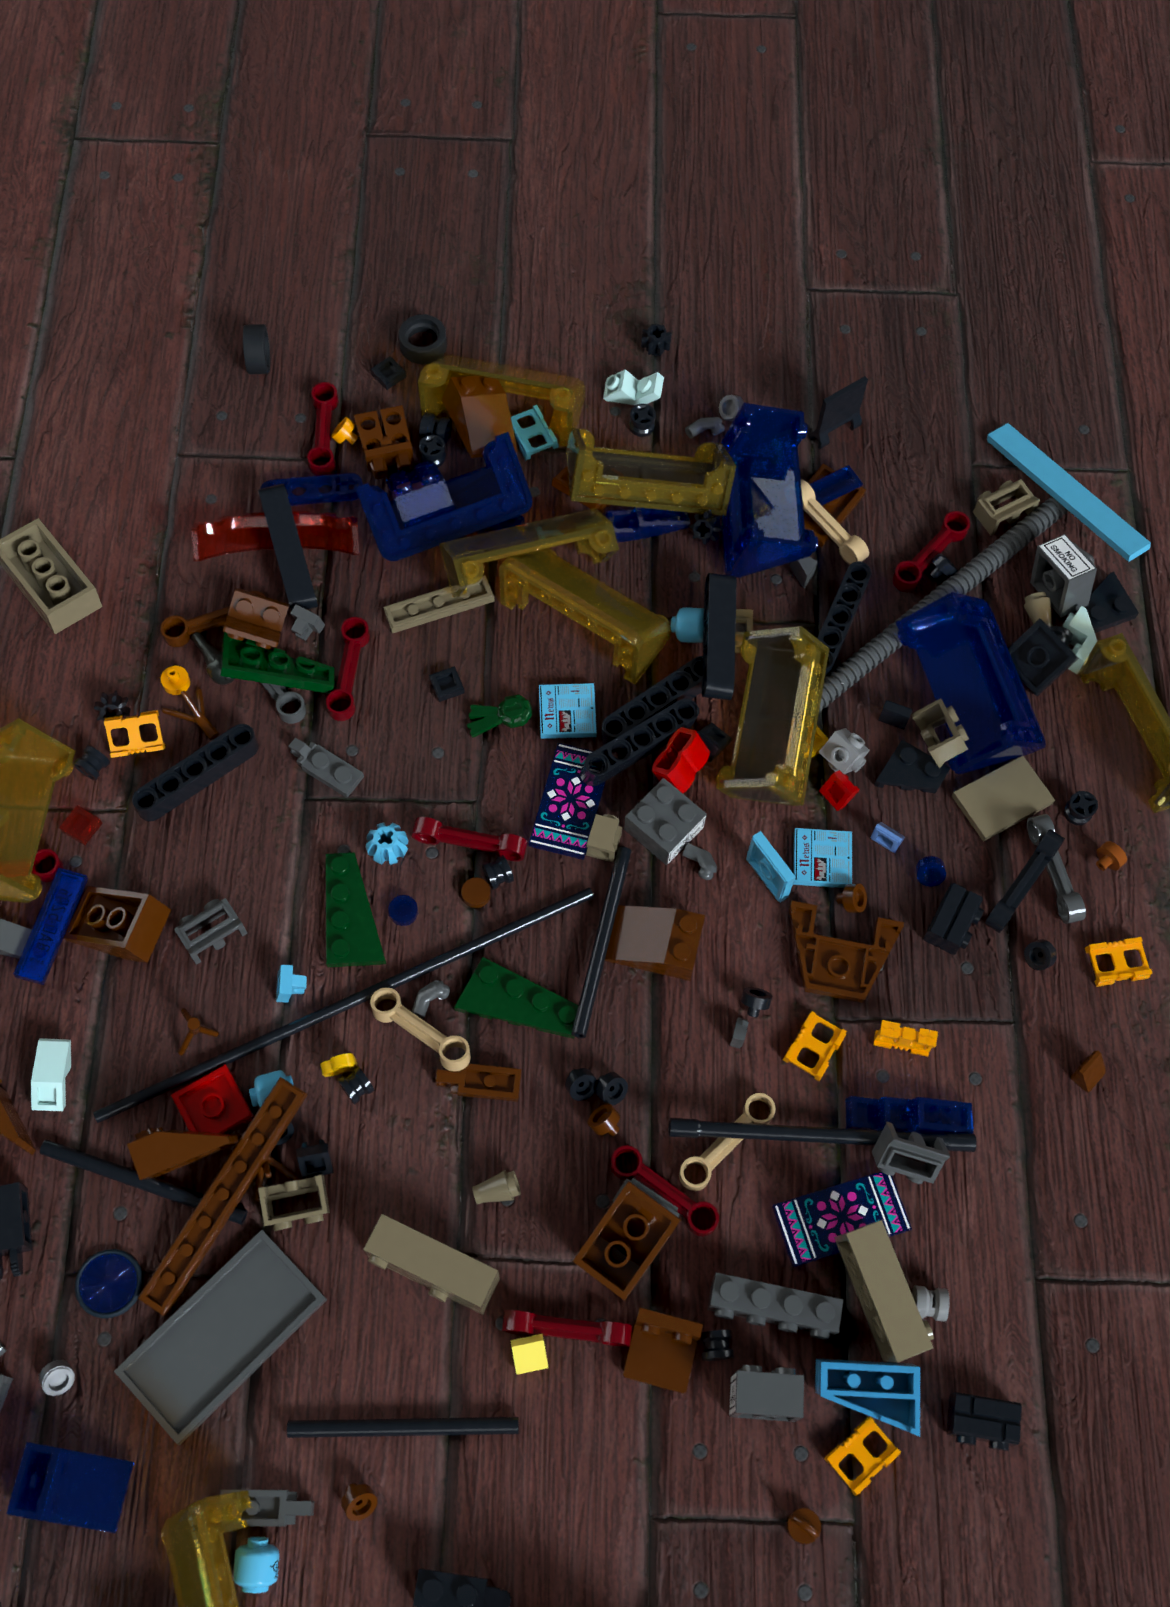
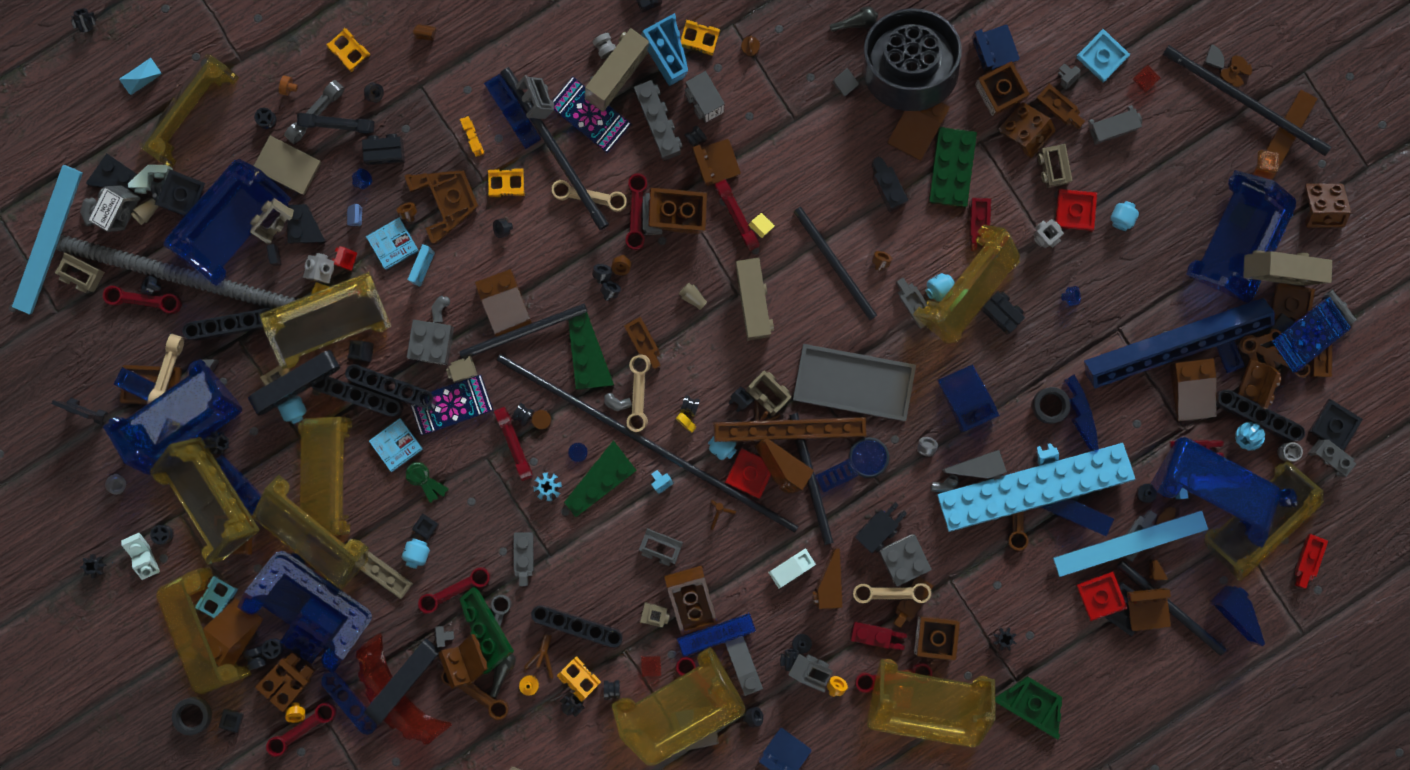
camera: 125 degrees left, 20 degrees up
(102, 1242) = (824, 487): none -> clear blue slope
(135, 868) = (655, 615): none -> dark tan window
(422, 651) = (415, 553): none -> medium azure head
(682, 759) = (387, 356): red brick -> none
(703, 424) = (136, 492): dark grey arm -> none
(739, 1033) = (527, 225): dark grey tile -> none

